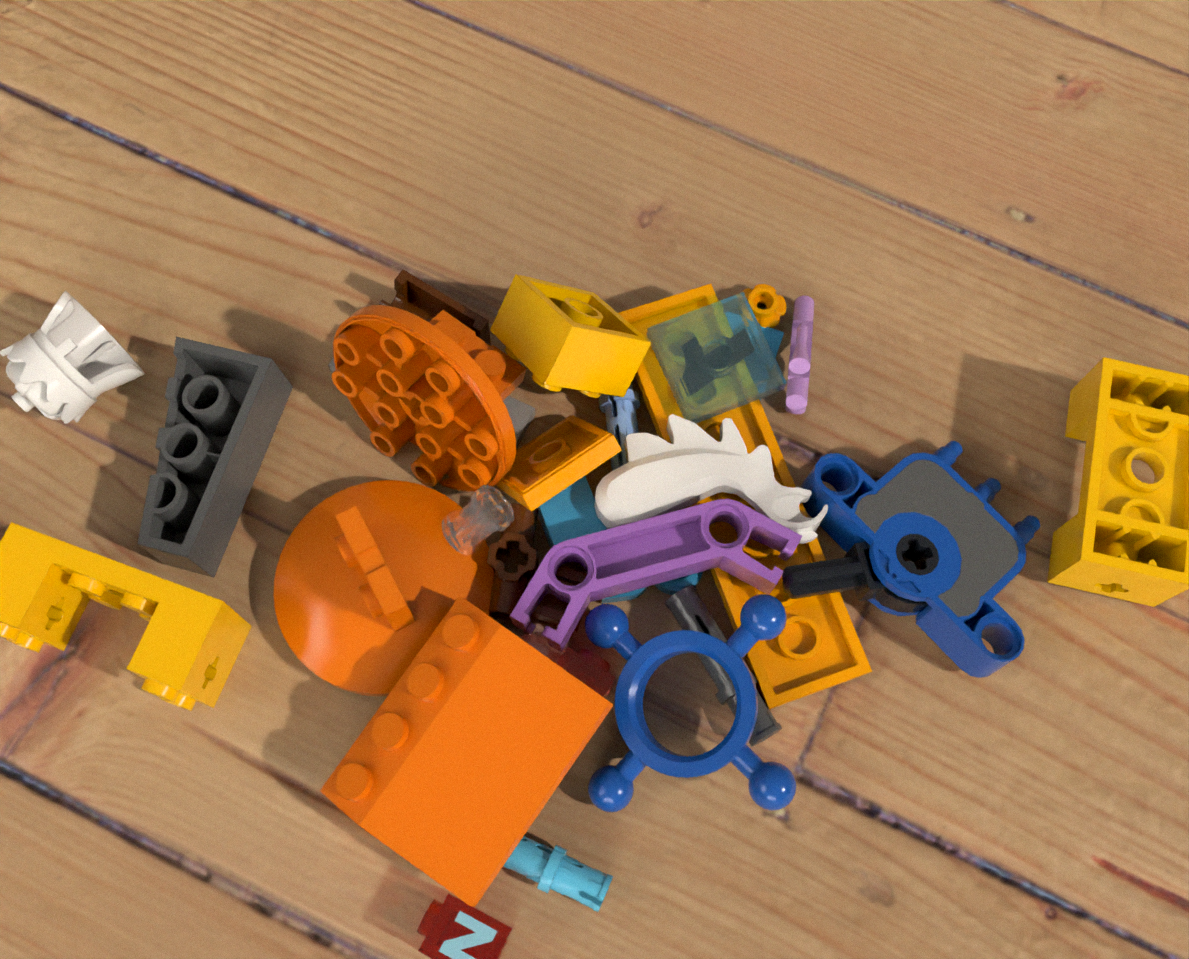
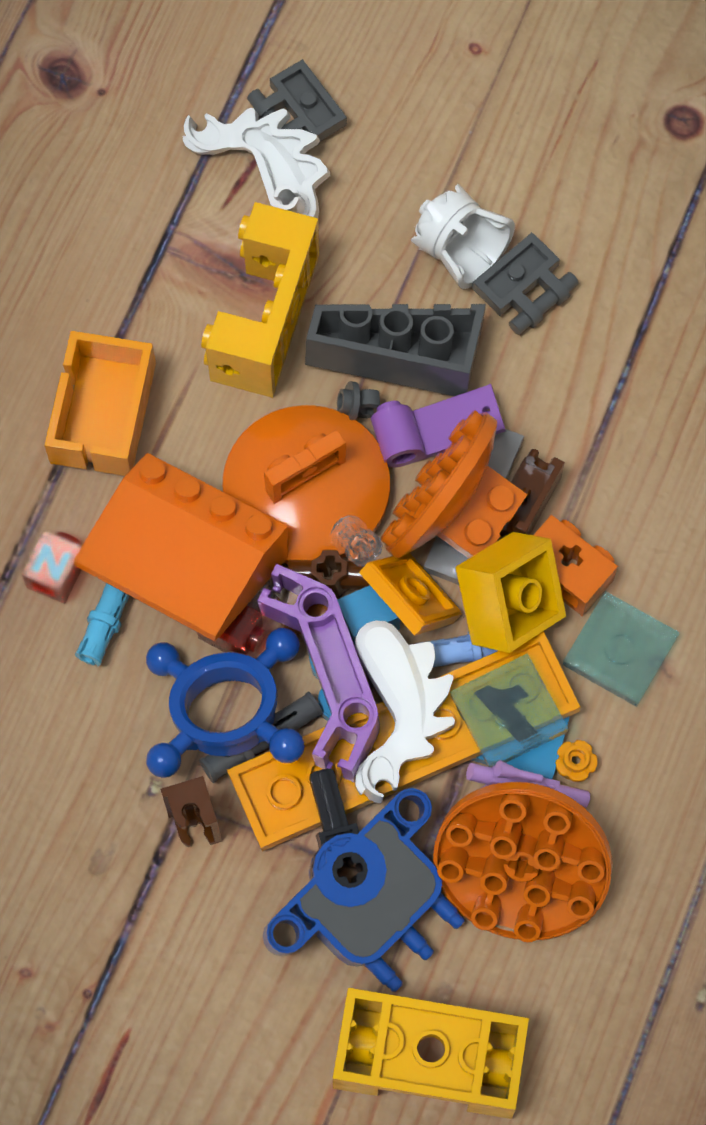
camera: 90 degrees right, 0 degrees up
(137, 313) = (518, 273): none -> dark grey plate
(231, 854) = (106, 408): none -> light orange piece
(278, 514) = (356, 402): none -> dark grey plate
(327, 424) = (423, 433): none -> medium lavender door
(532, 257) = (595, 566): none -> orange brick
(627, 250) = (620, 648): none -> clear light blue tile
(826, 752) = (190, 806): none -> reddish brown hinge
(898, 355) = (523, 861): none -> orange bracket

